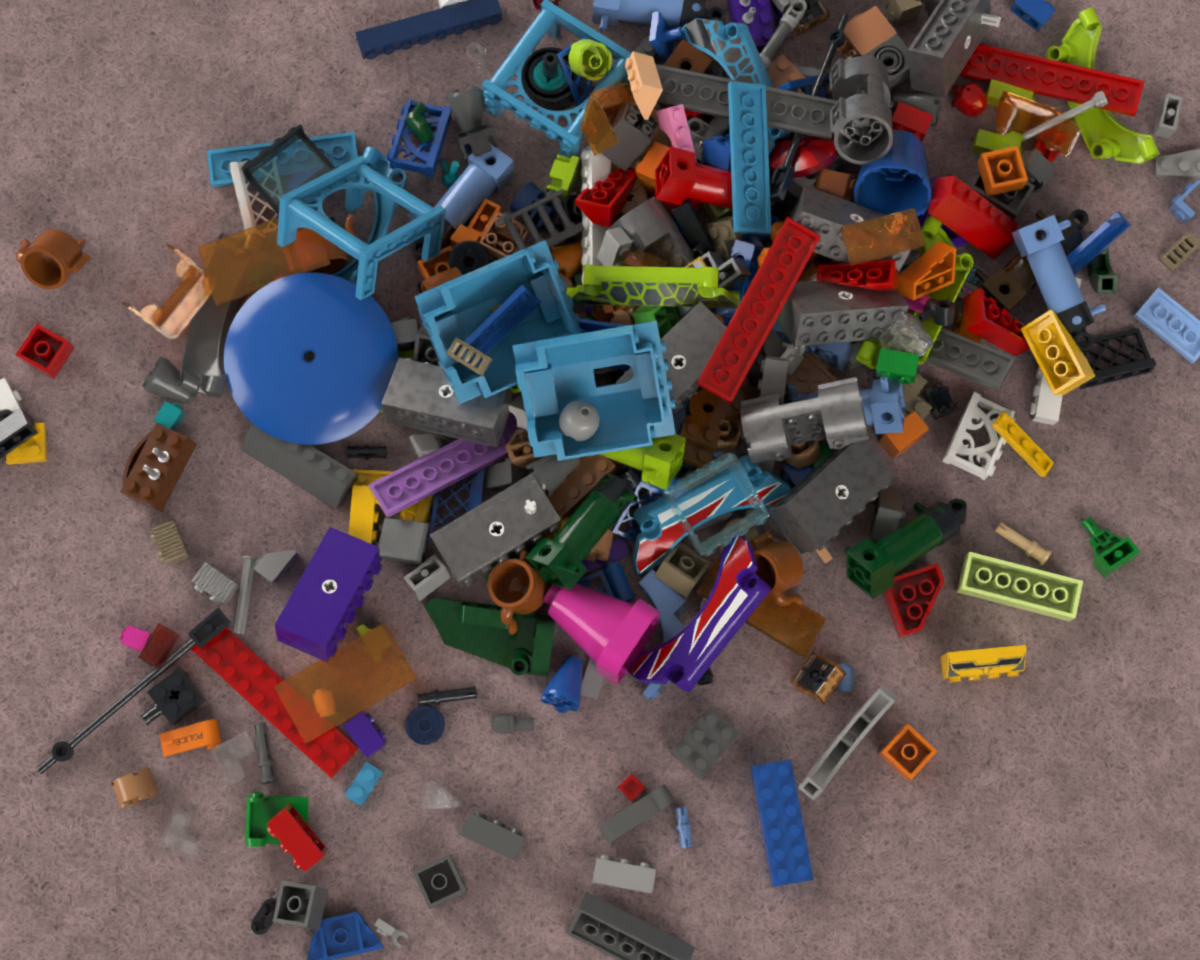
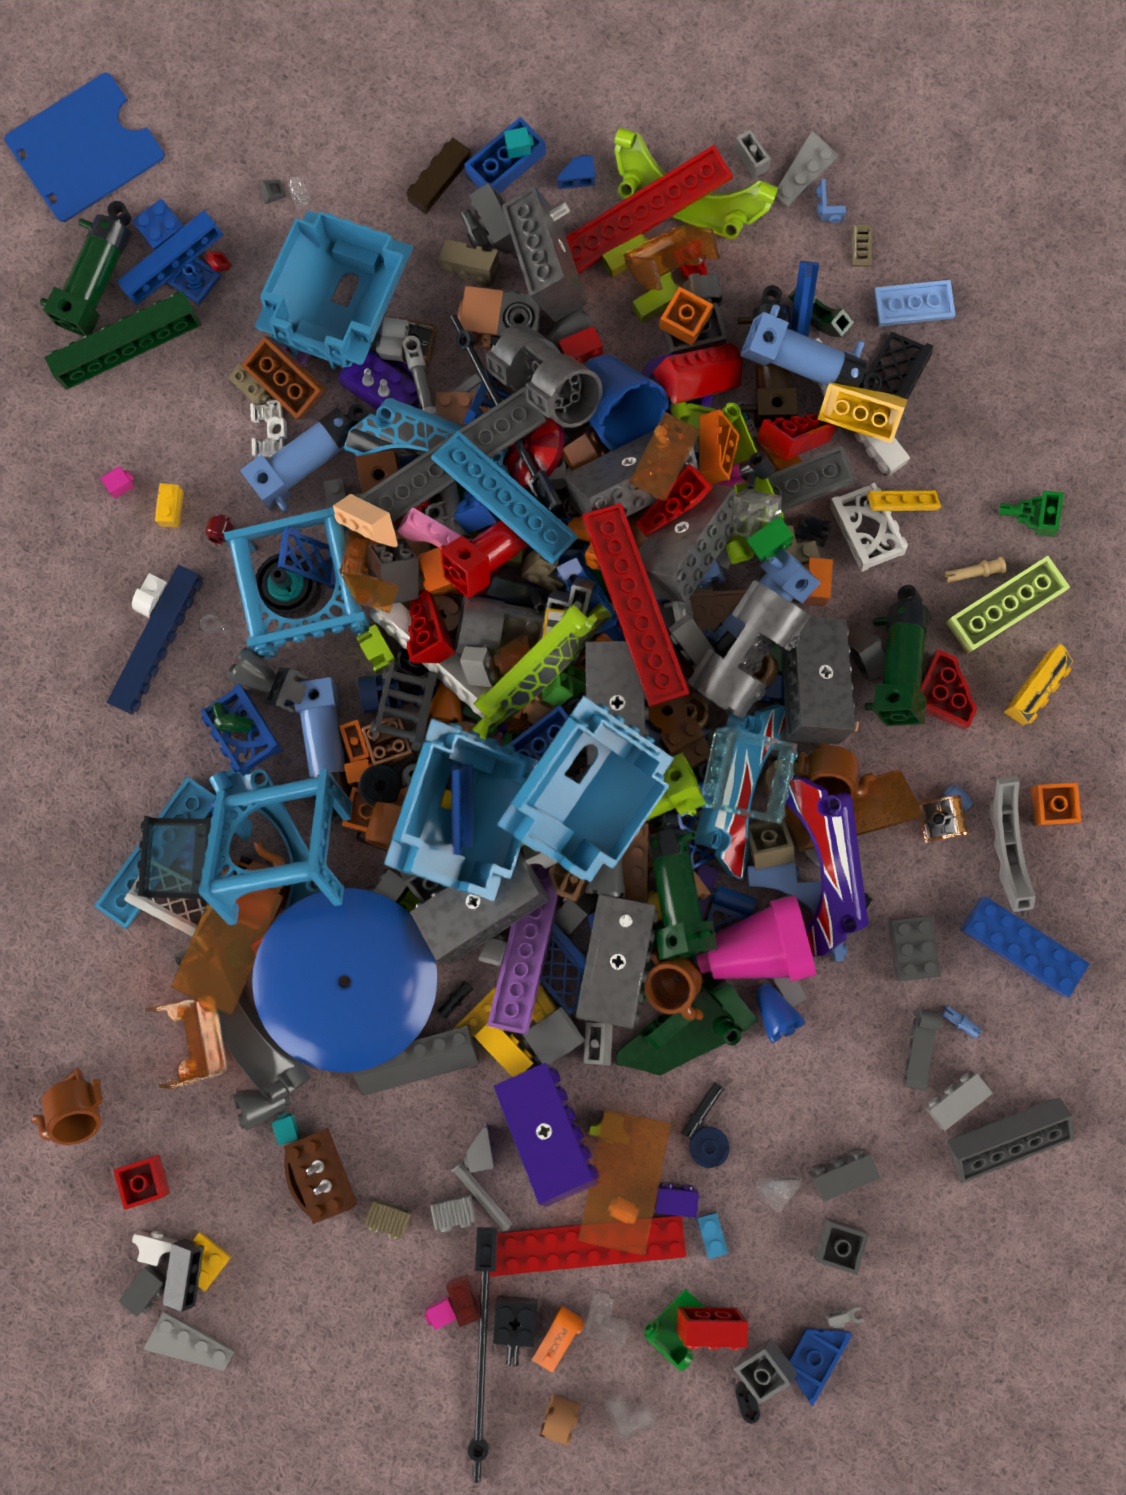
camera: 35 degrees left, 5 degrees up
(266, 762) = (630, 1297): dark grey pin -> none
(450, 174) = (294, 734): teal piece -> none
(458, 350) = (451, 866): dark tan slope -> none
(510, 723) = (766, 1082): dark grey arm -> none
(579, 420) = (596, 822): light grey cylinder -> none
(589, 59) = (306, 544): lime brick -> none
(631, 787) = (896, 1033): red tile -> none
(663, 37) = (337, 468): blue tile -> none
(969, 99) = (601, 286): red animal -> none
(1098, 100) = (697, 192): light grey piece -> none

